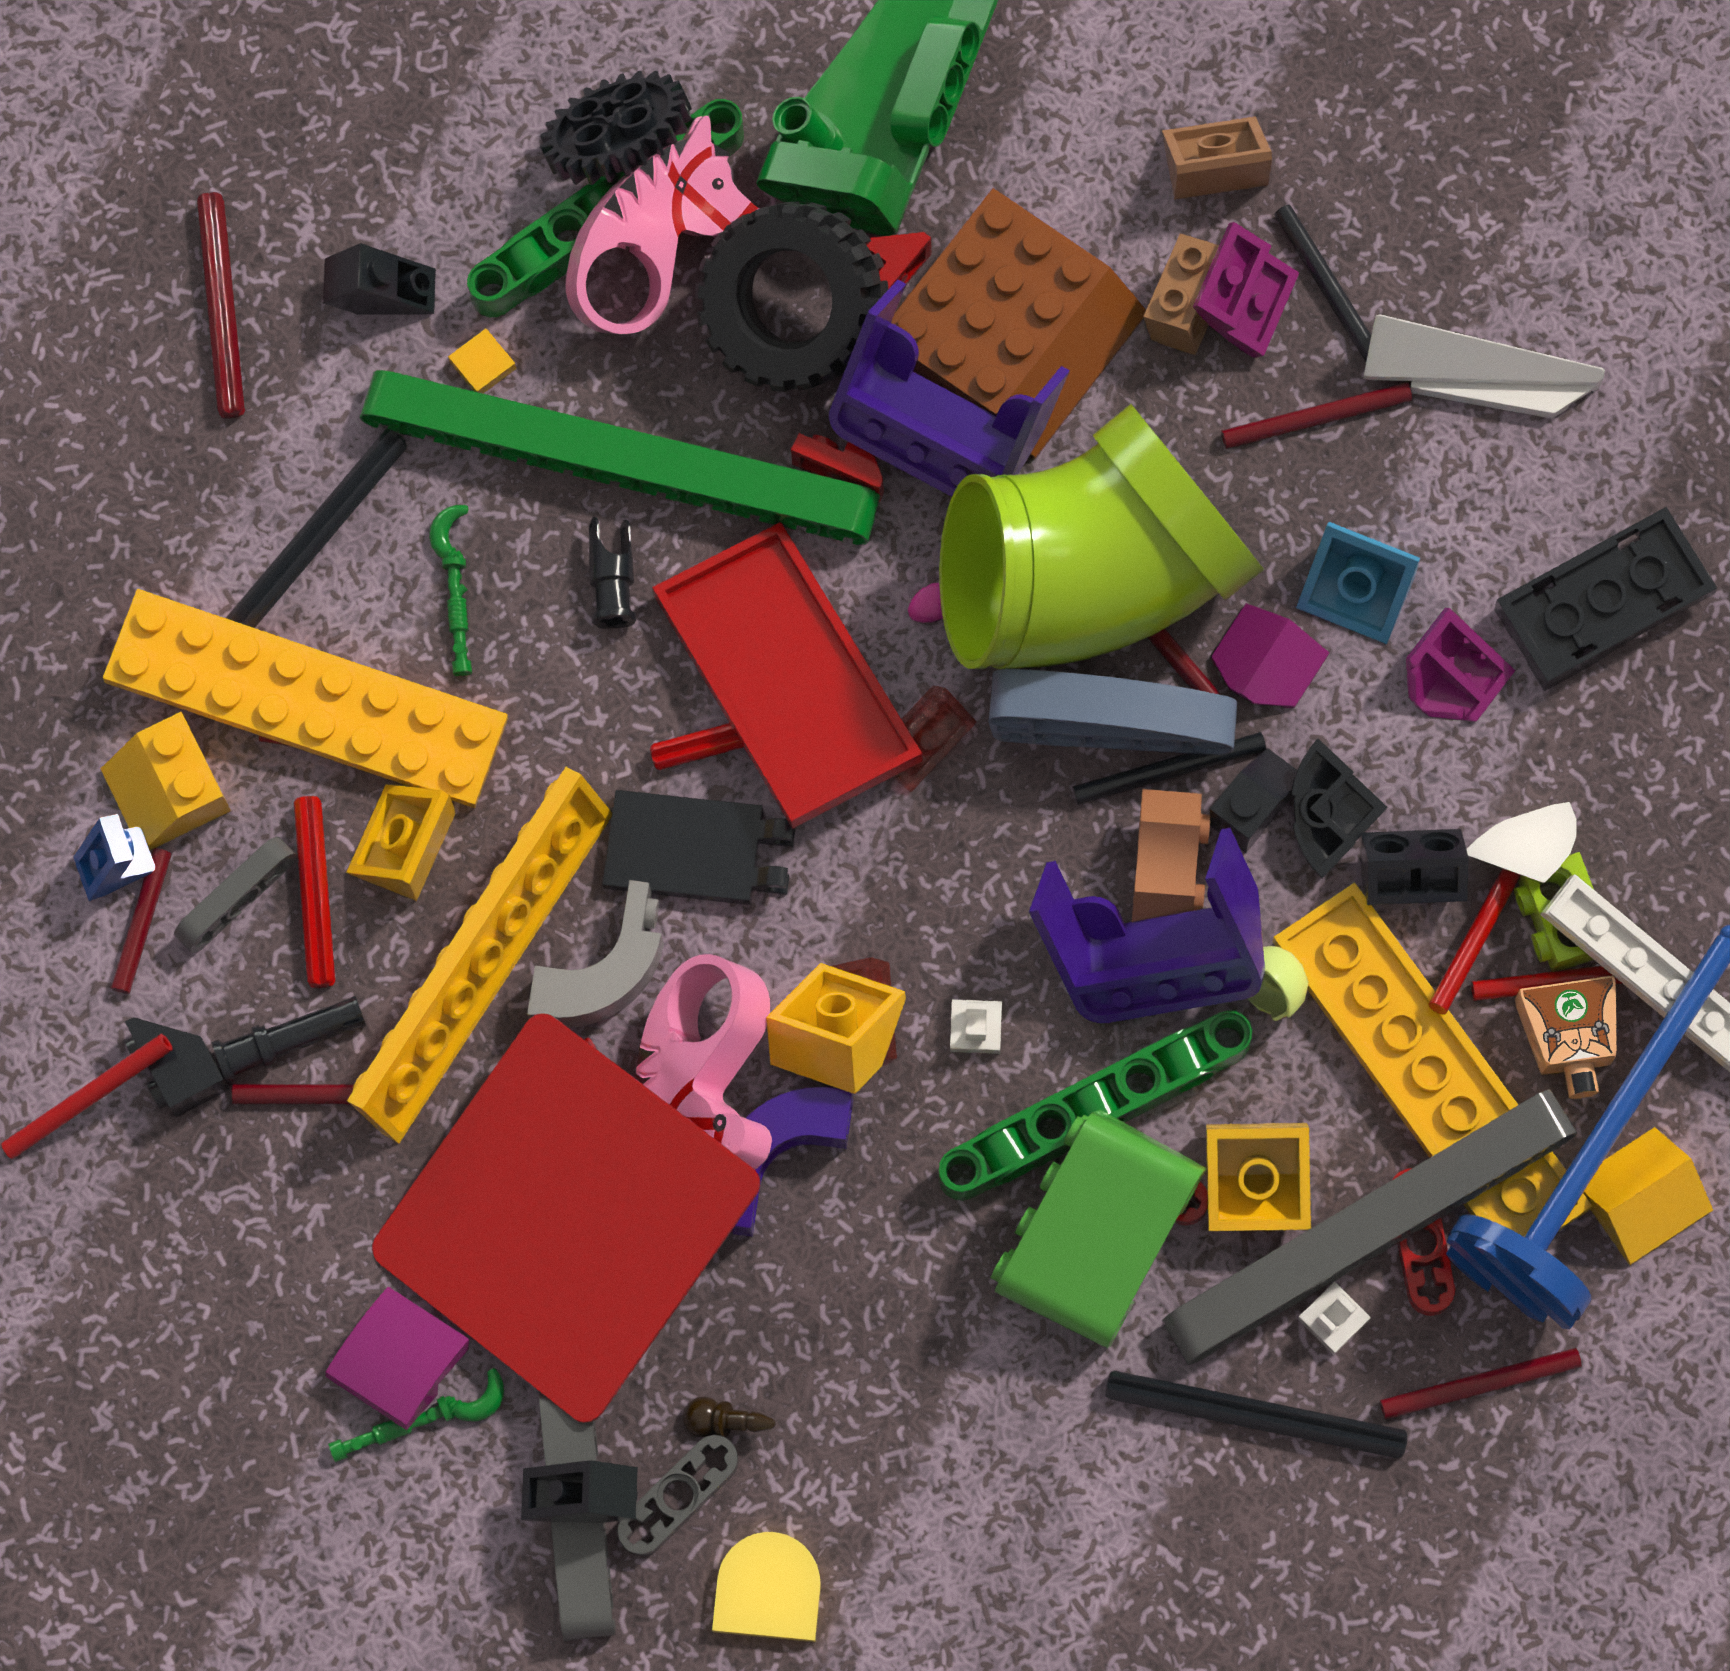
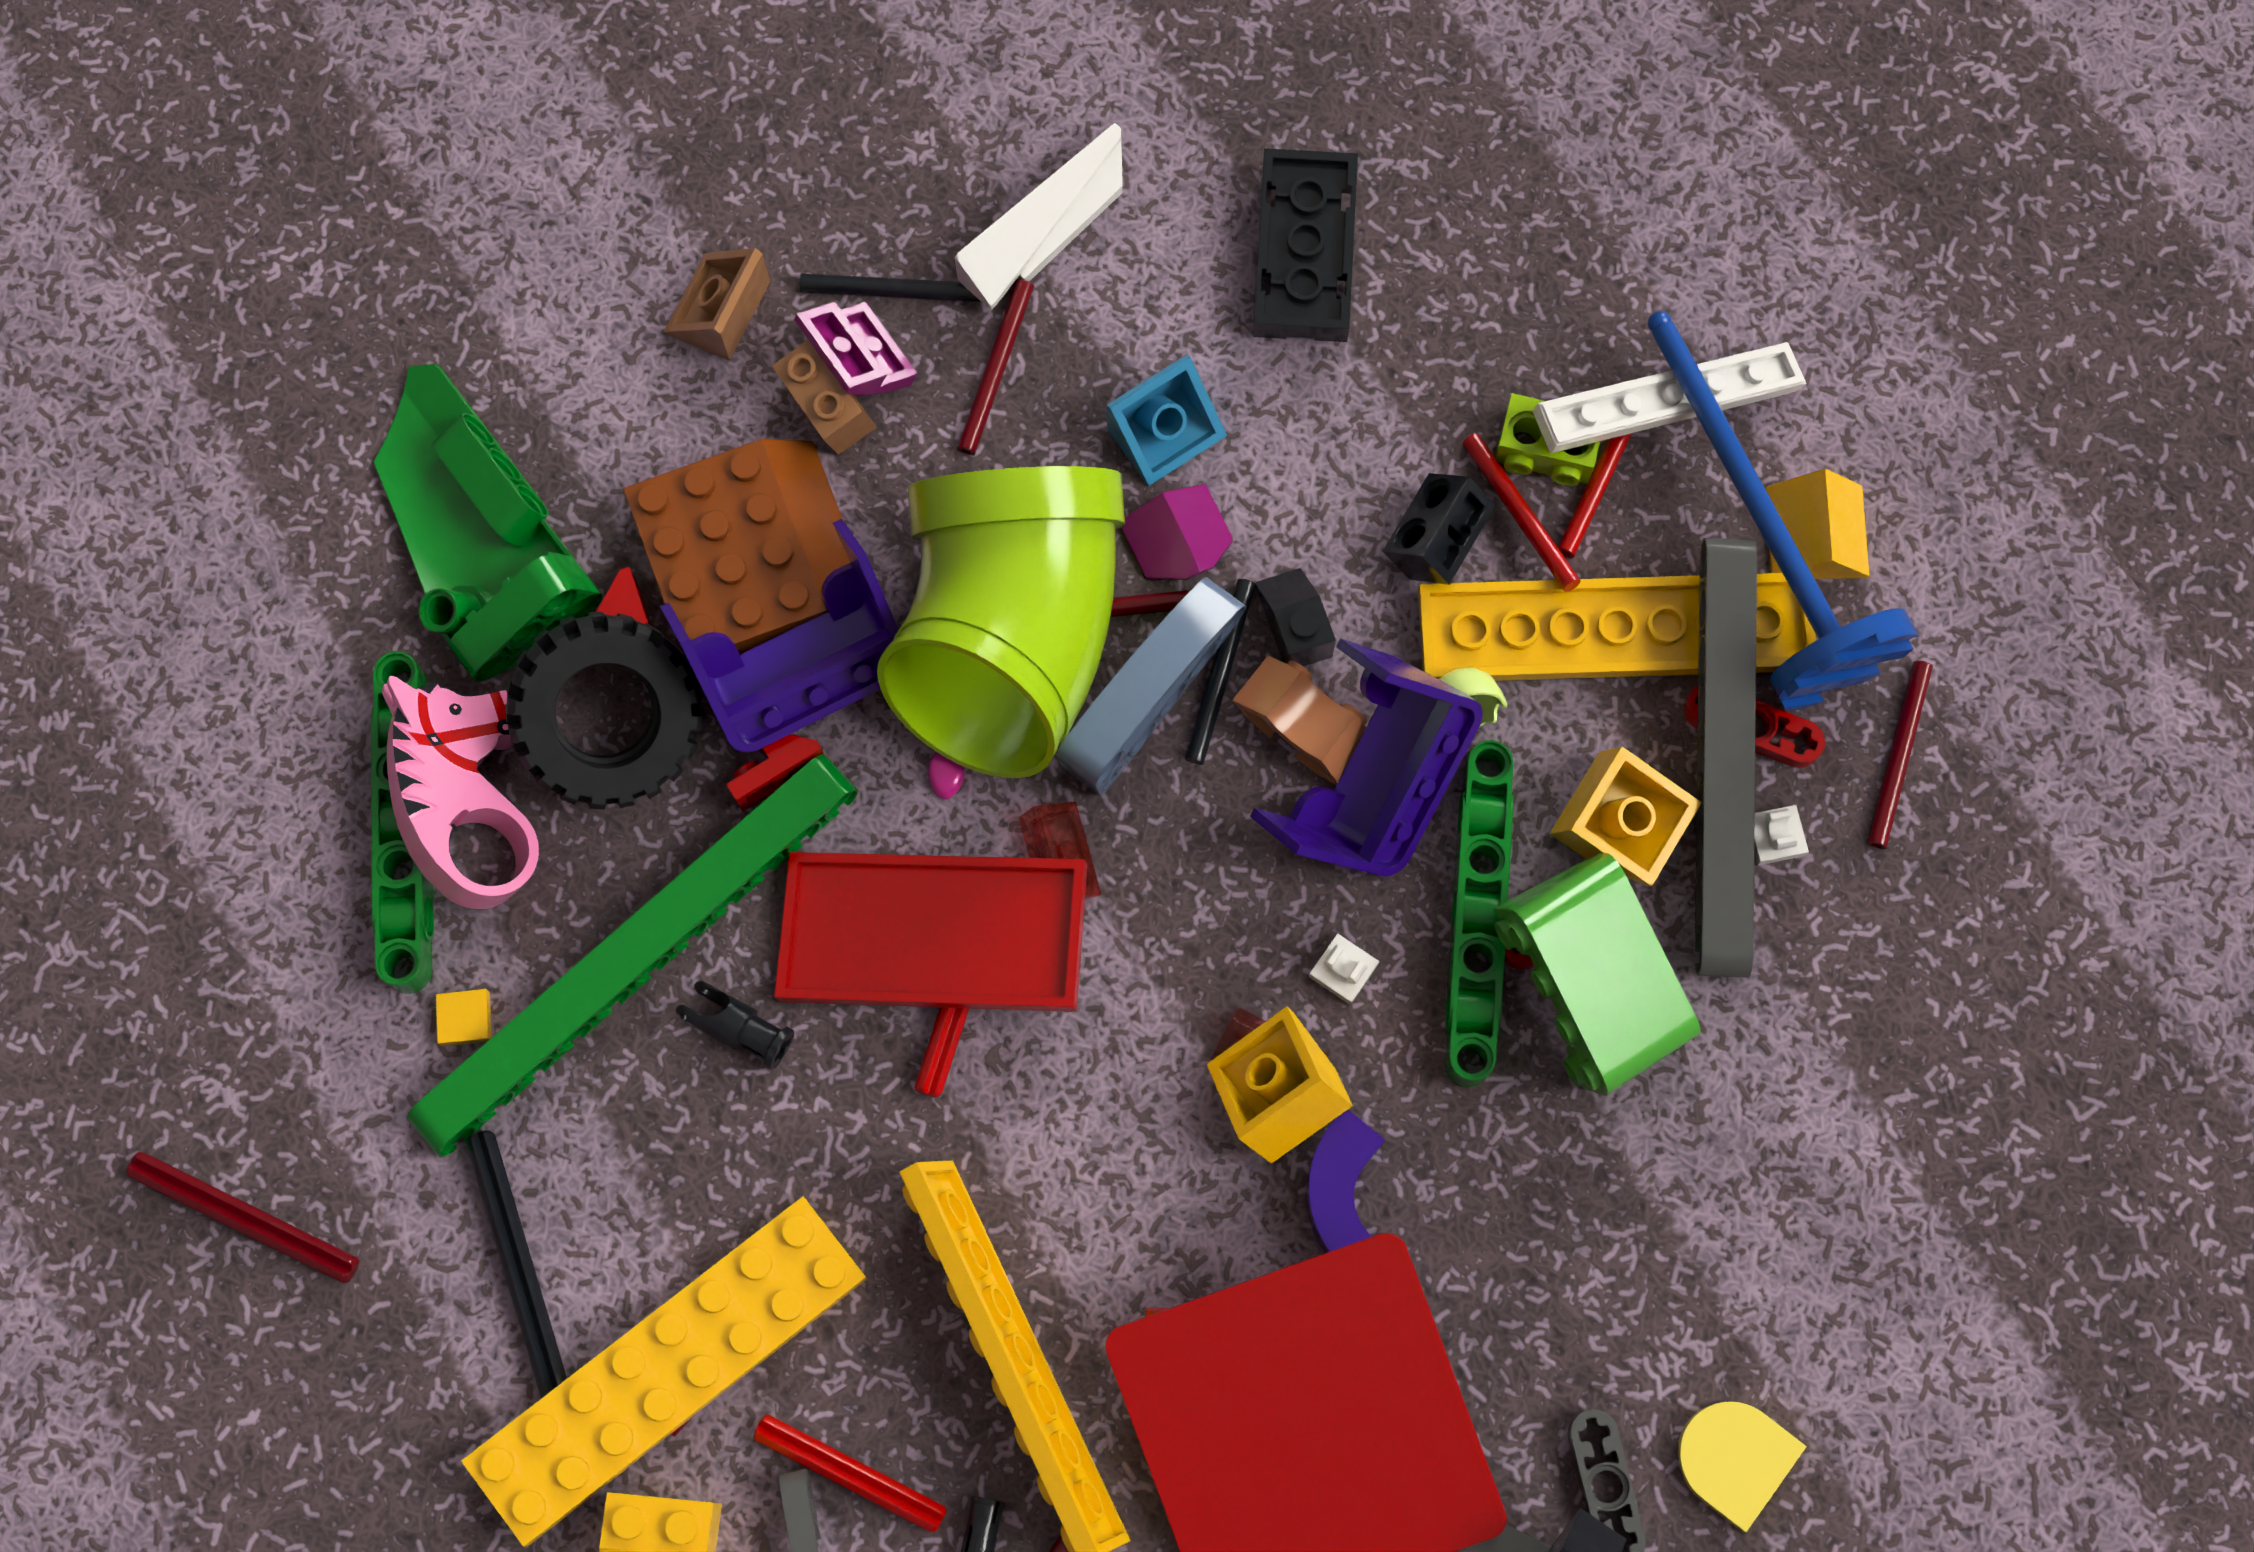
camera: 60 degrees left, 0 degrees up
(378, 283) = (325, 1063): black slope -> none
(403, 839) = (853, 1363): yellow slope -> none
(453, 562) = (629, 1157): green piece -> none
(613, 983) = (1110, 1274): light grey arch -> none
(615, 127) = (338, 765): black gear -> none
(693, 847) = (1030, 1111): black tile -> none
(696, 1073) = (1245, 1238): bright pink animal -> none
(706, 1417) = (1548, 1417): dark brown bar -> none
(1256, 1414) = (1820, 950): black axle -> none
(1329, 808) = (1344, 564): black brick -> none
(1454, 671) = (1290, 395): magenta slope -> none
(1529, 843) = (1474, 427): white sticker -> none
(1571, 1029) = (1651, 495): torso -> none

